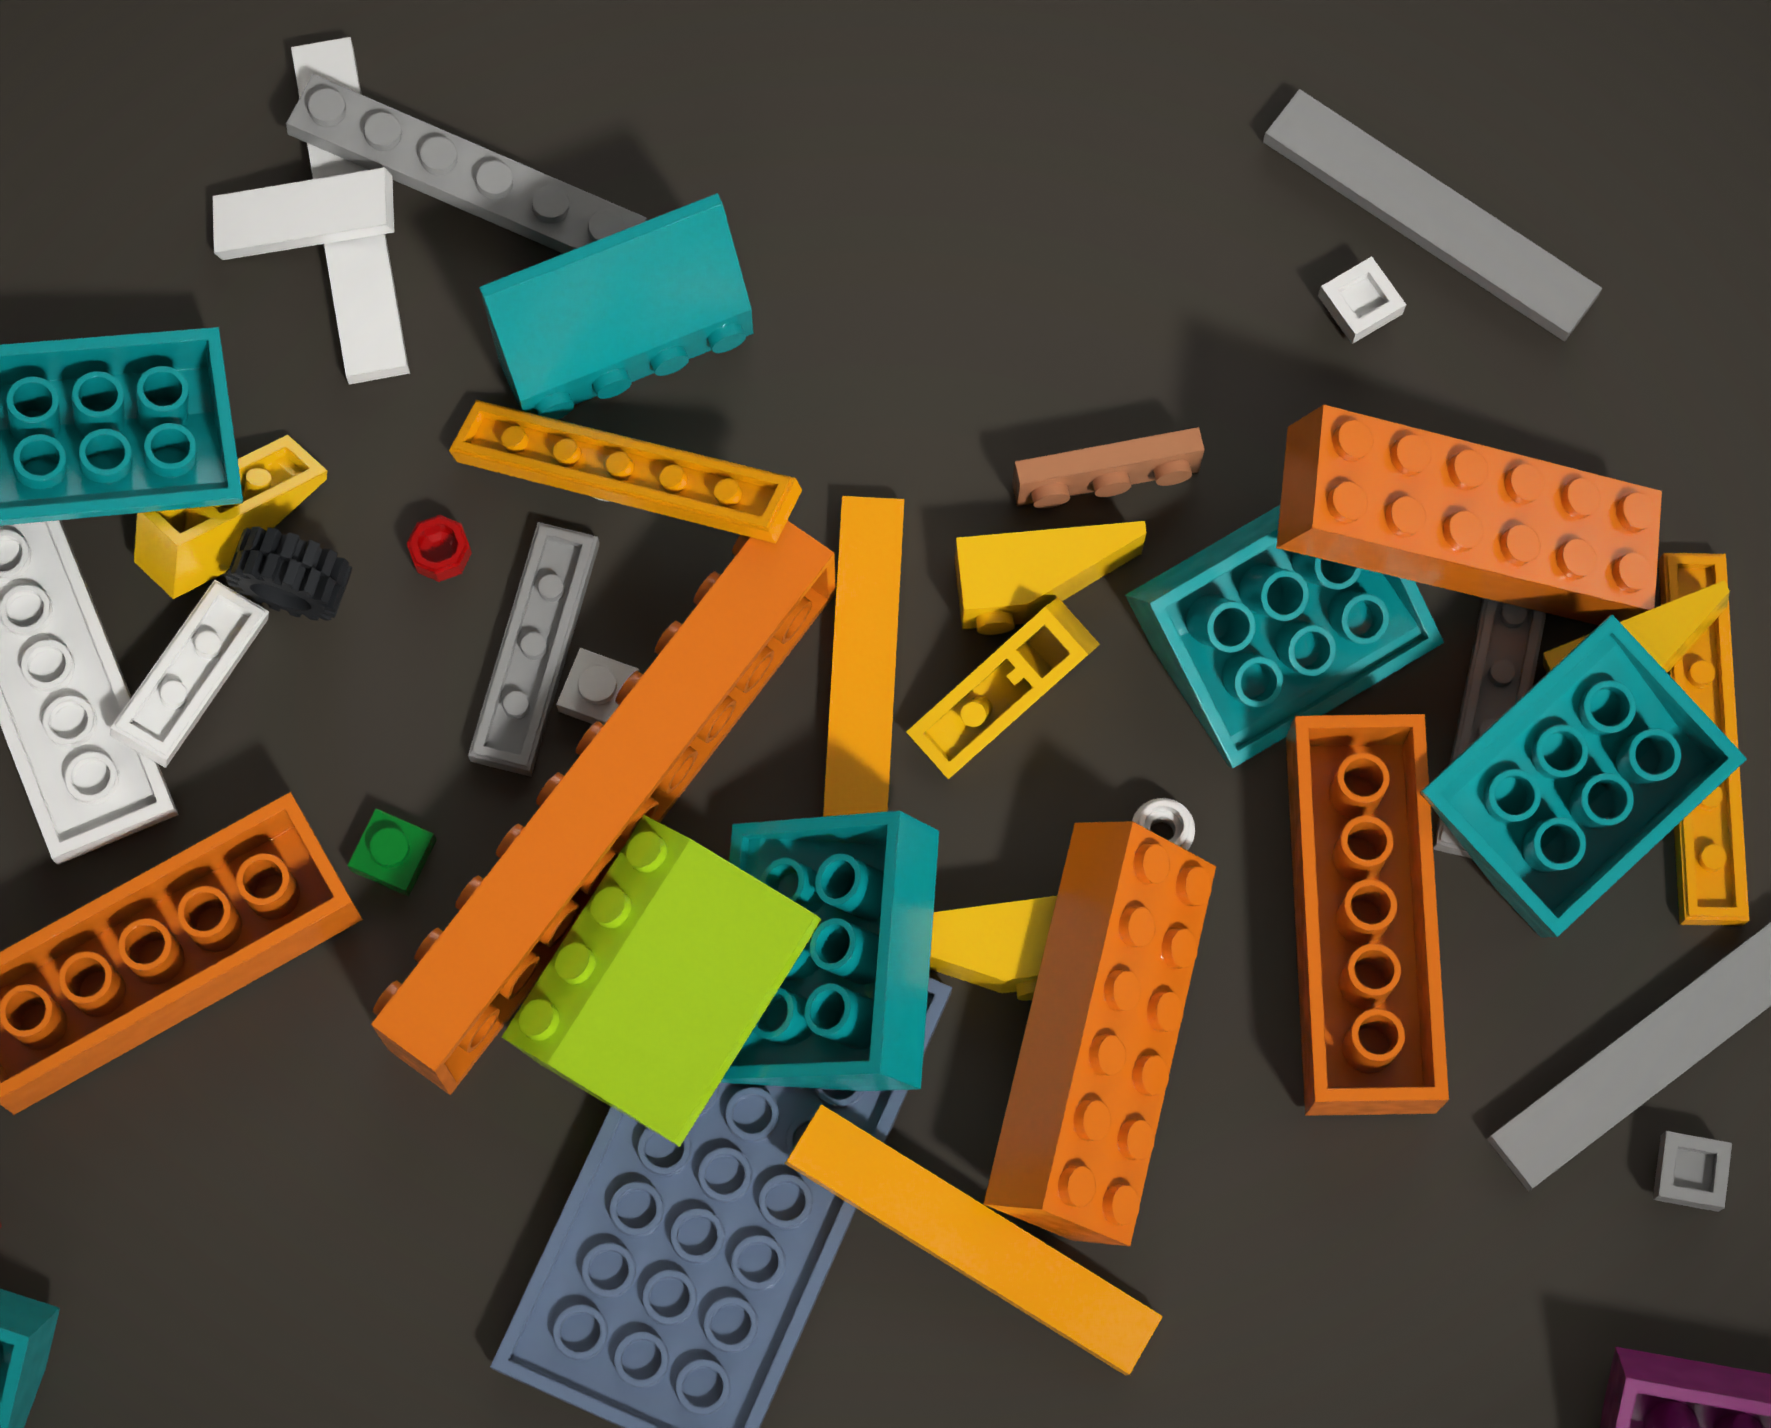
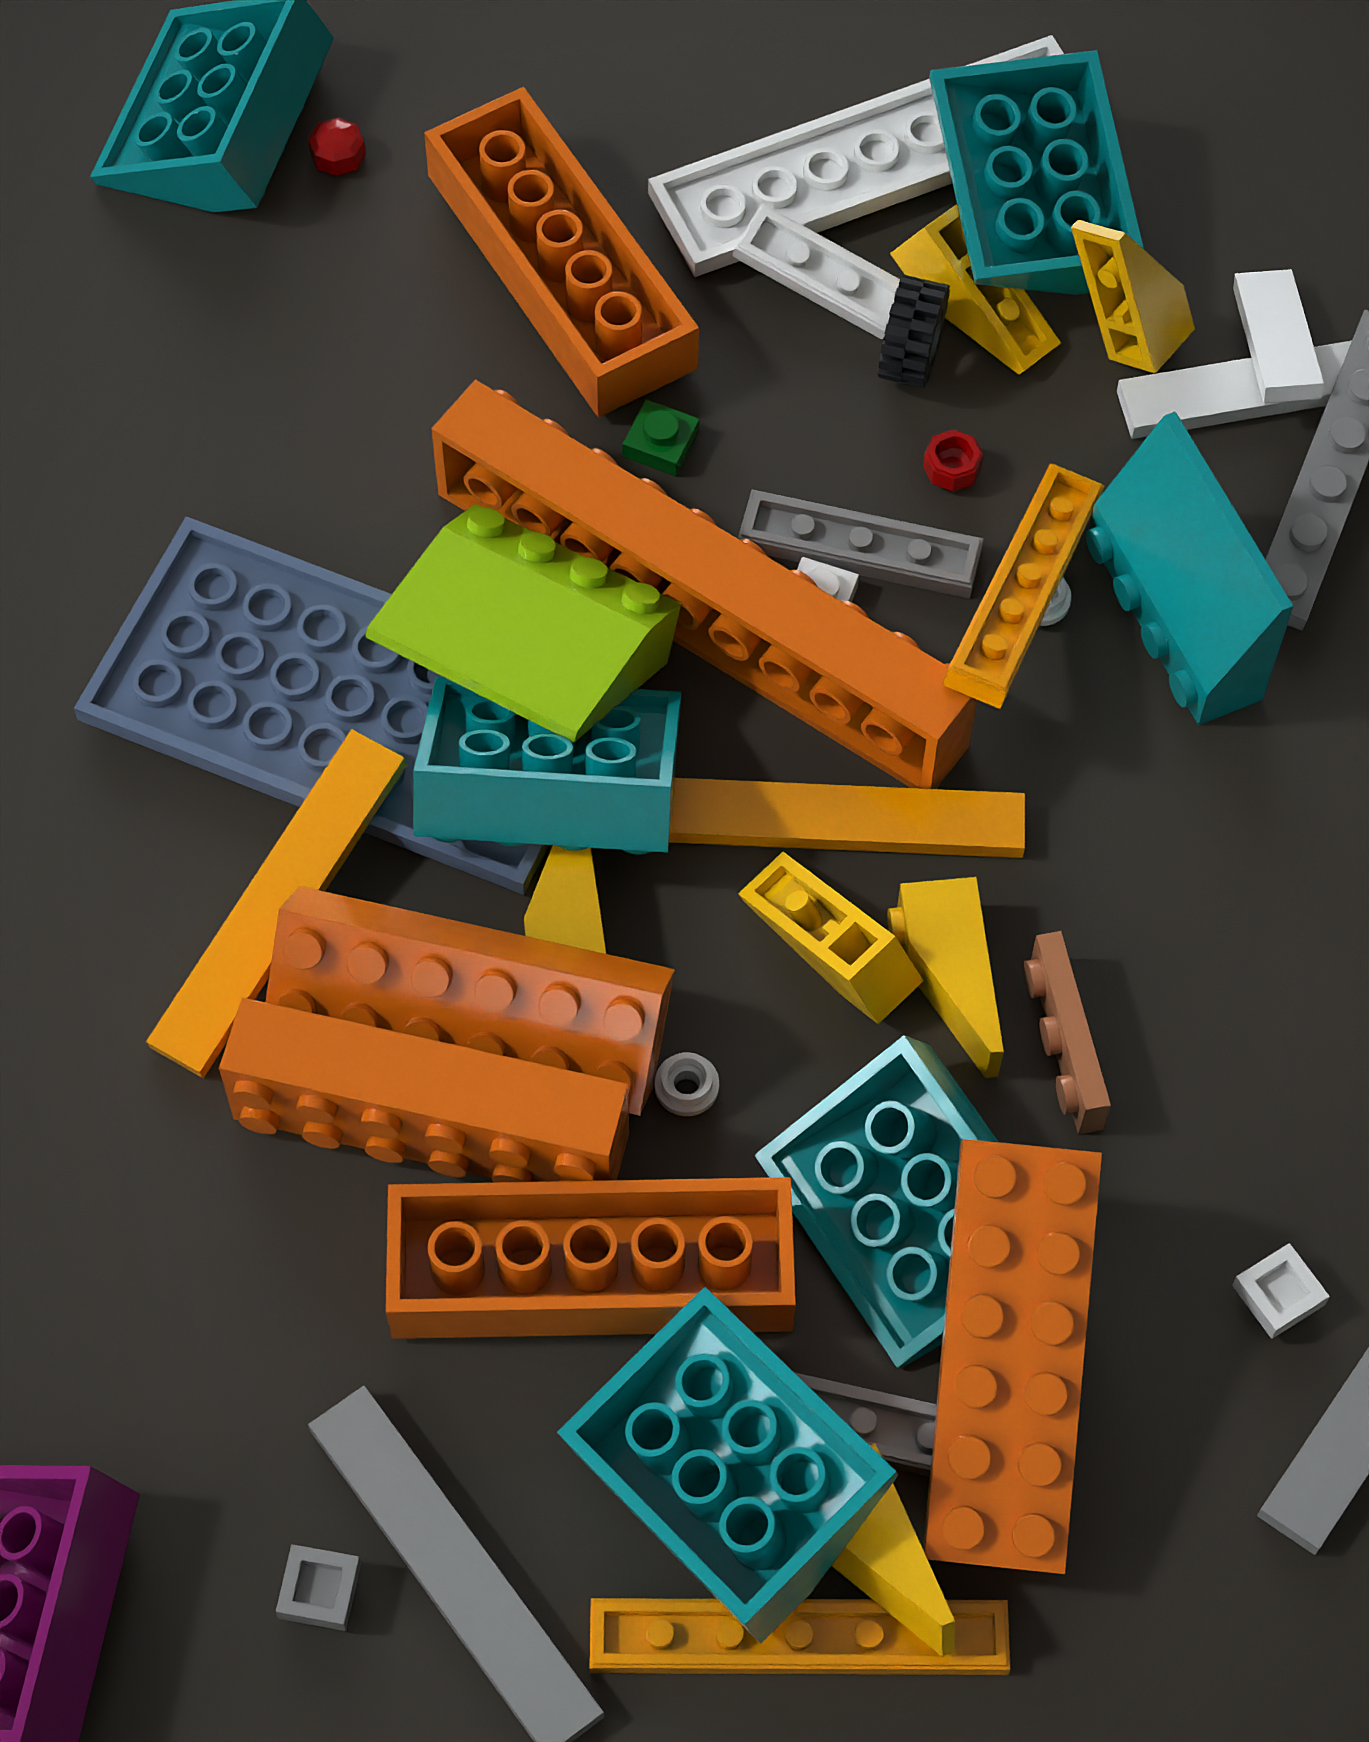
camera: 90 degrees right, 10 degrees down
(275, 344) = (1134, 298): none -> yellow slope
(1213, 1074) = (420, 1099): none -> orange brick

